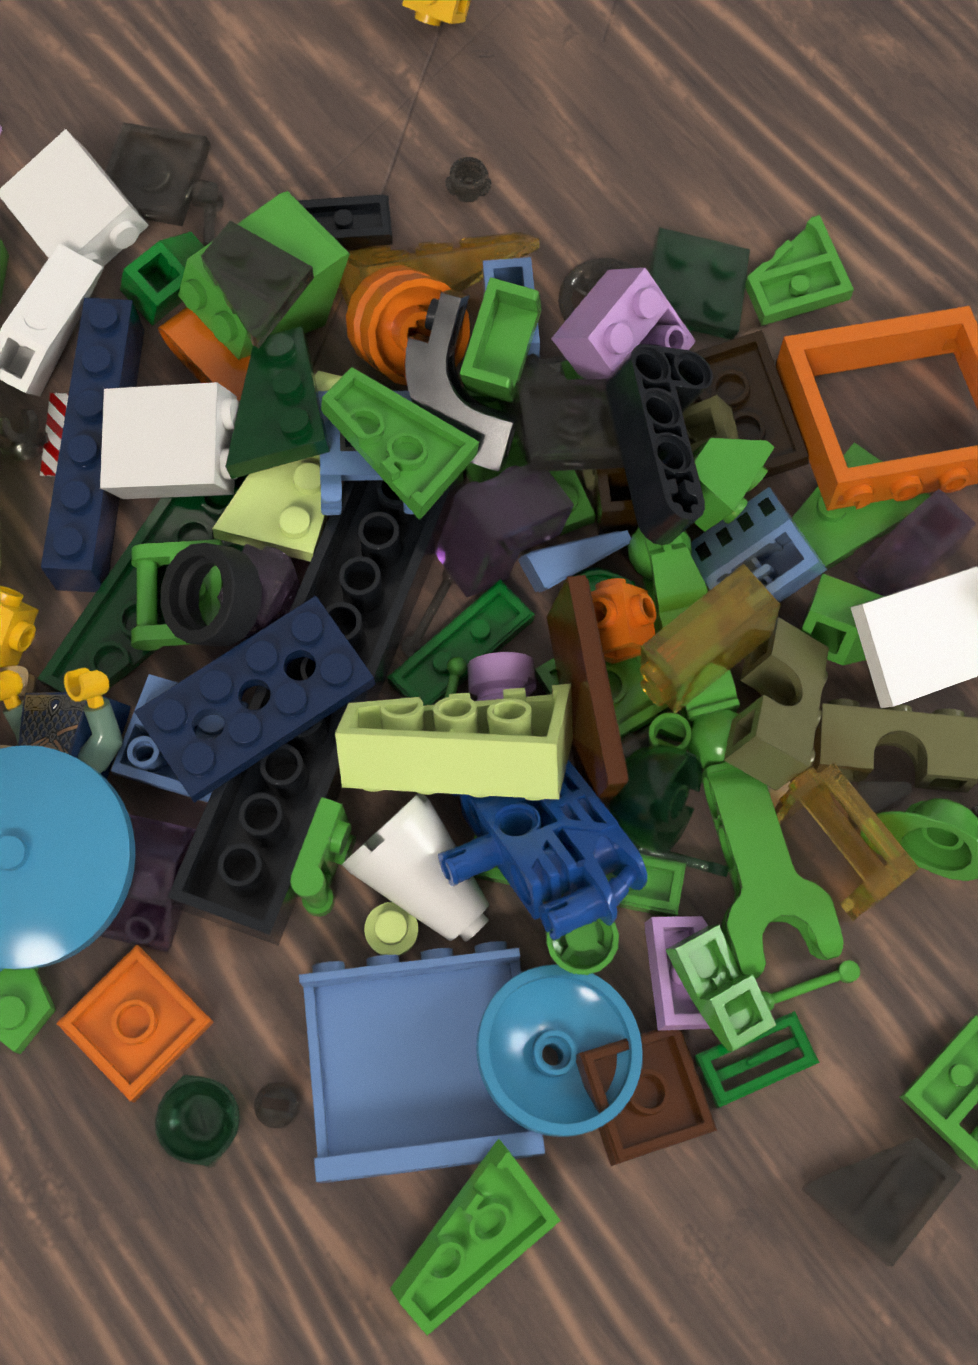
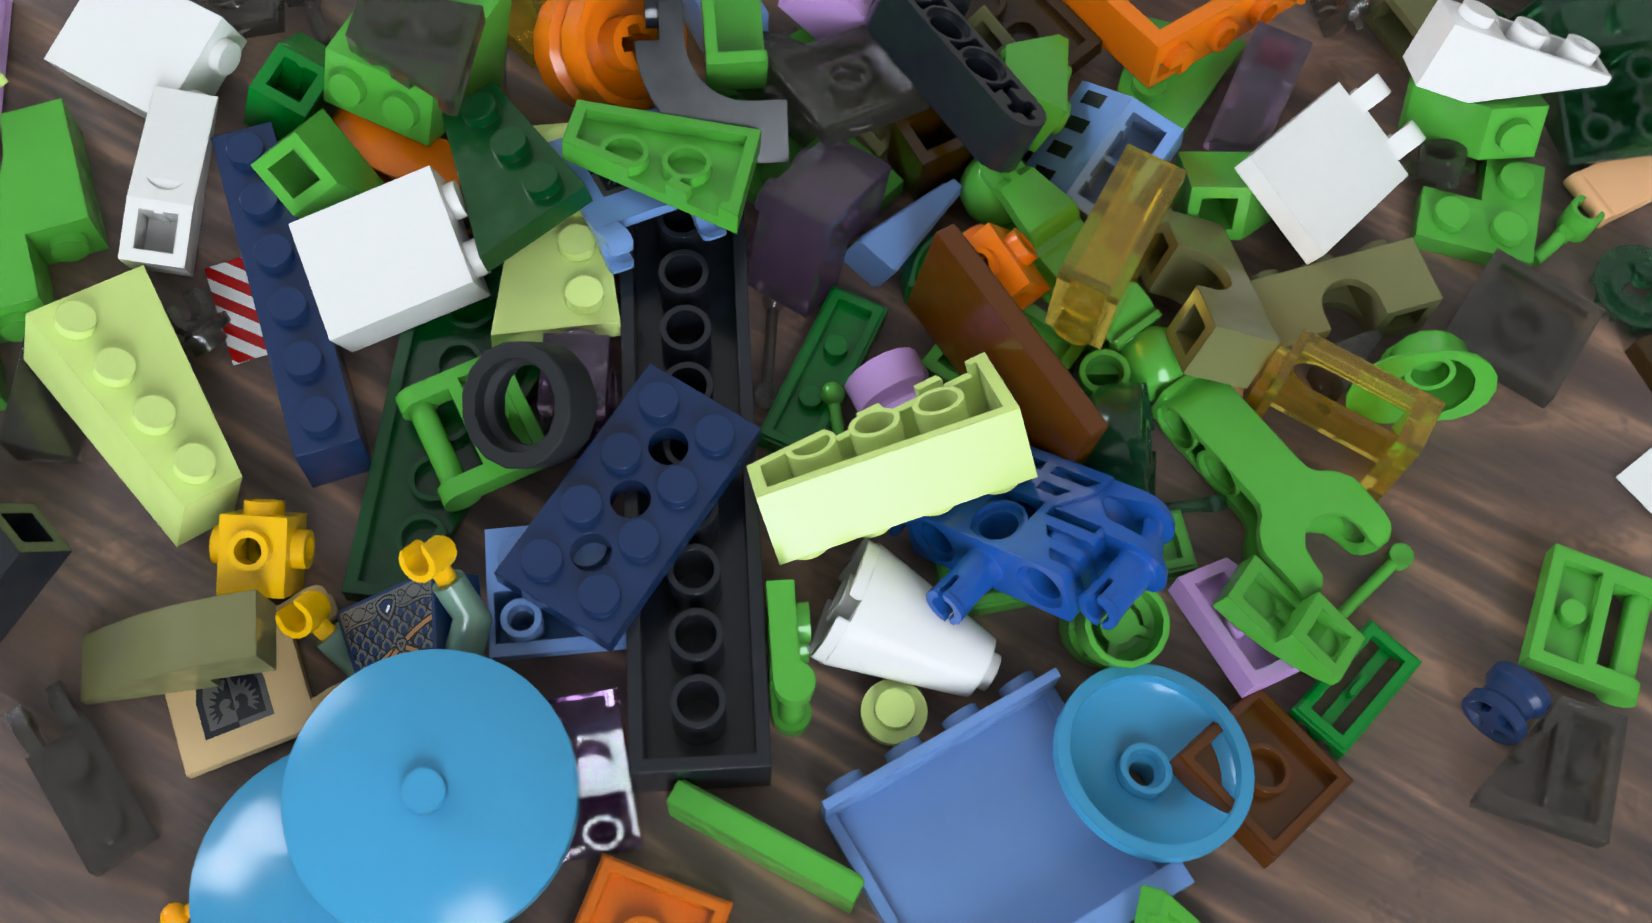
camera: 30 degrees left, 5 degrees down
(147, 351) = (315, 167): none -> bright green slope
(250, 989) = (765, 845): none -> bright green tile
(869, 1123) = (1506, 703): none -> dark blue wheel

